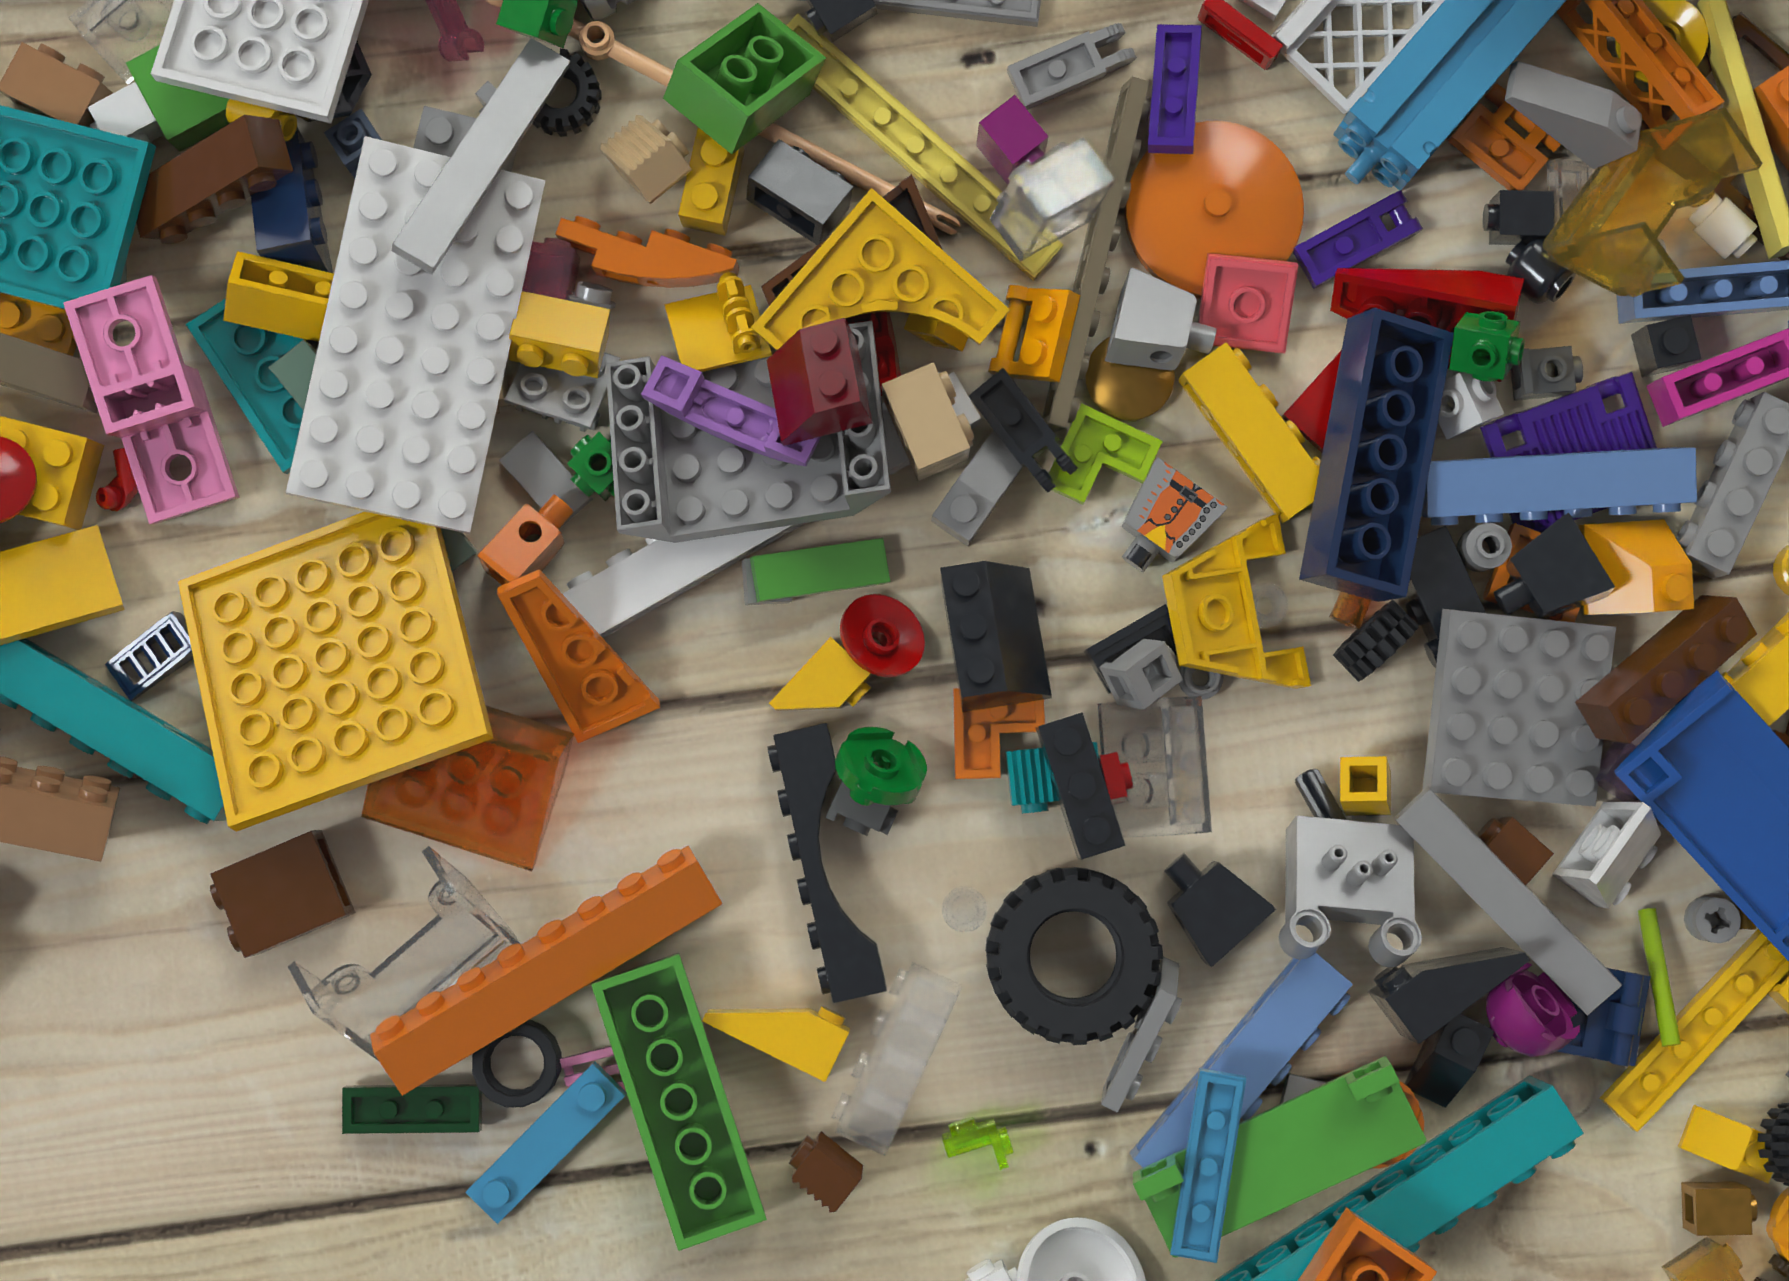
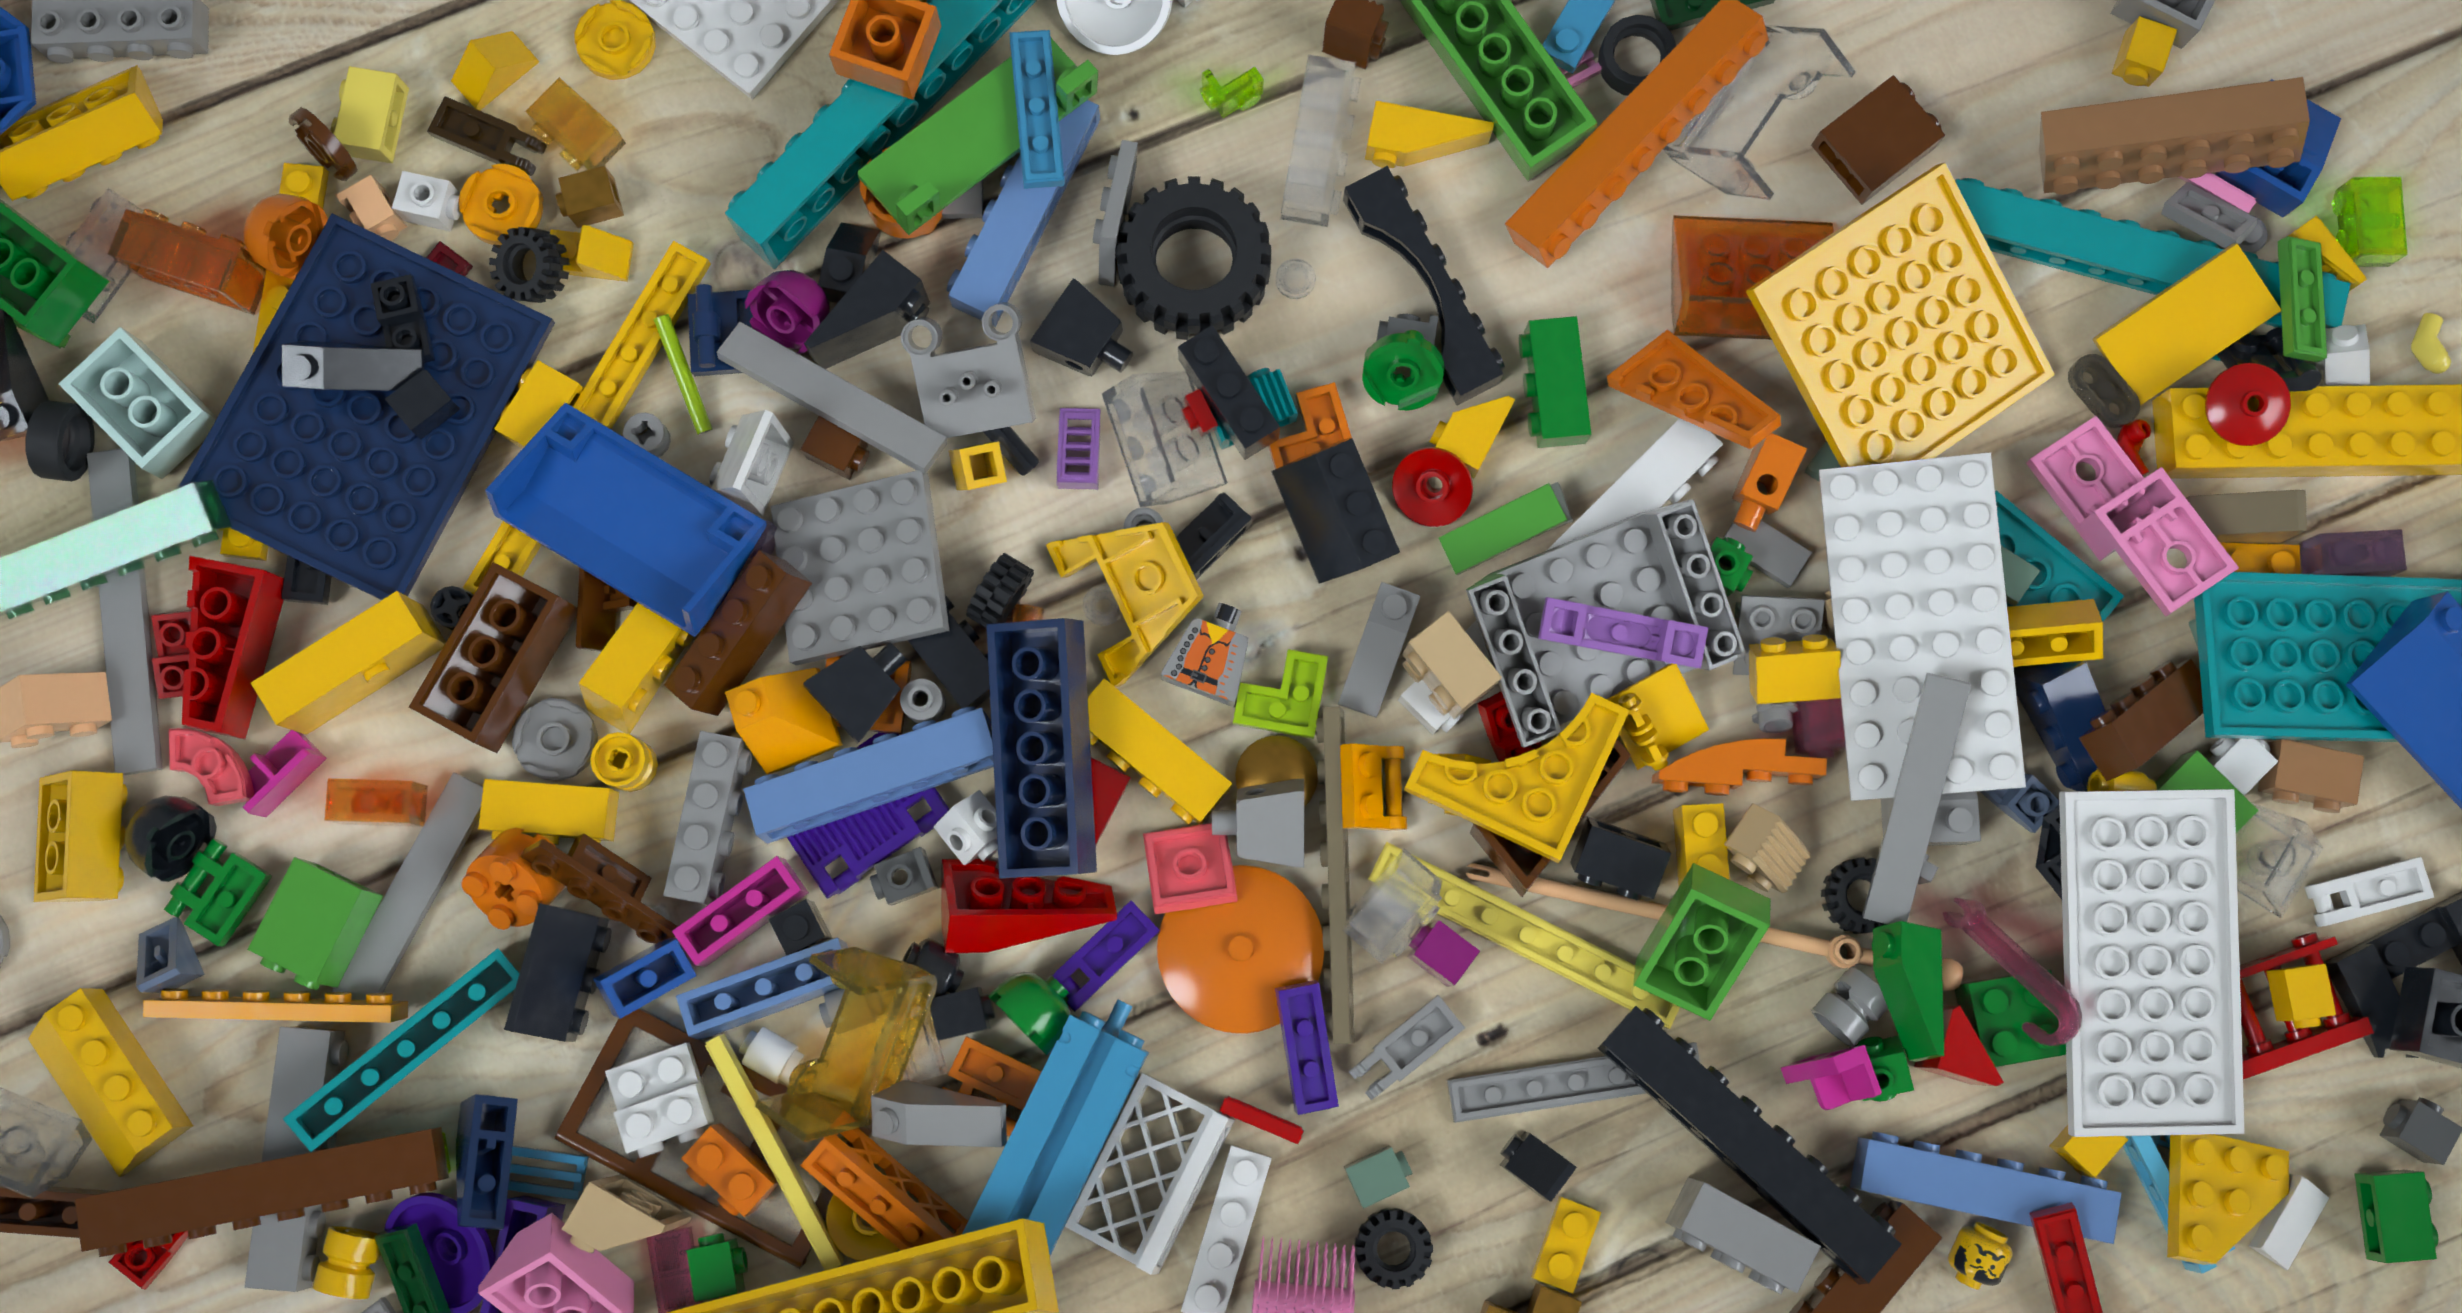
camera: 160 degrees right, 5 degrees down
(130, 552) = (2106, 389): none -> clear smoke plate
(173, 623) = (2044, 337): slope -> none
(717, 715) = (1555, 382): none -> green brick
(818, 383) = (1555, 668): dark red slope -> none
(1020, 426) = (1362, 696): black hinge -> none
(1142, 674) = (1197, 507): light grey brick -> none
(1264, 788) = (1078, 480): none -> medium lavender slope
(1447, 197) = (1034, 1007): none -> green cylinder
(1486, 345) = (968, 872): green brick -> none

